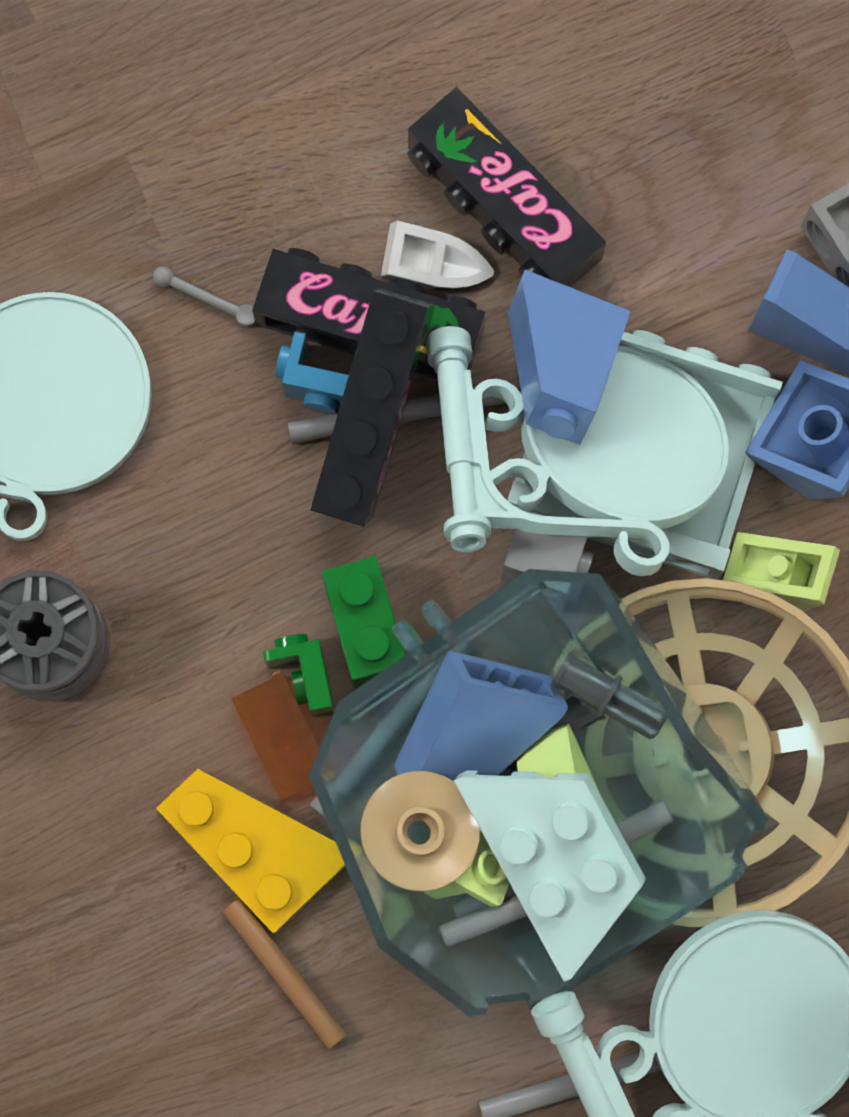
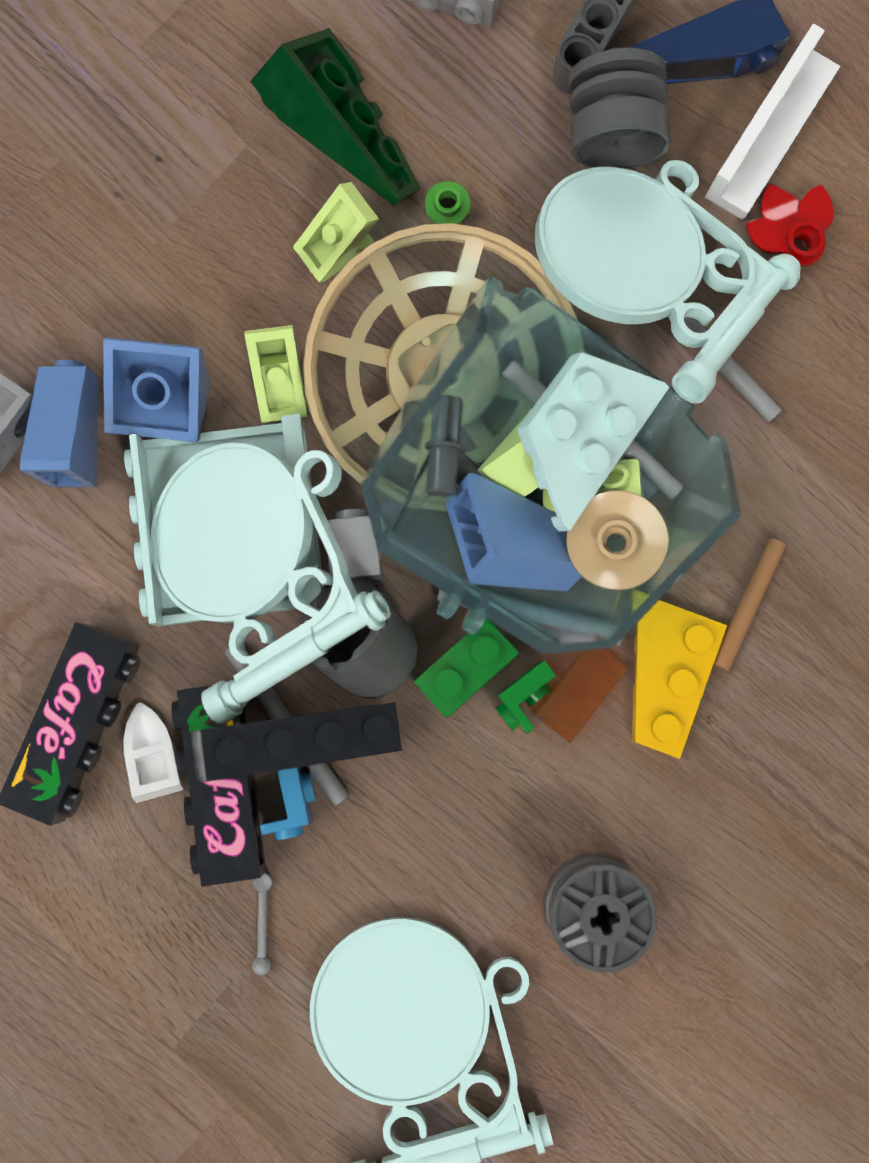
camera: 120 degrees left, 5 degrees up
(413, 527) = (369, 660): none -> dark grey cylinder
(562, 353) = (186, 607): medium blue slope -> none

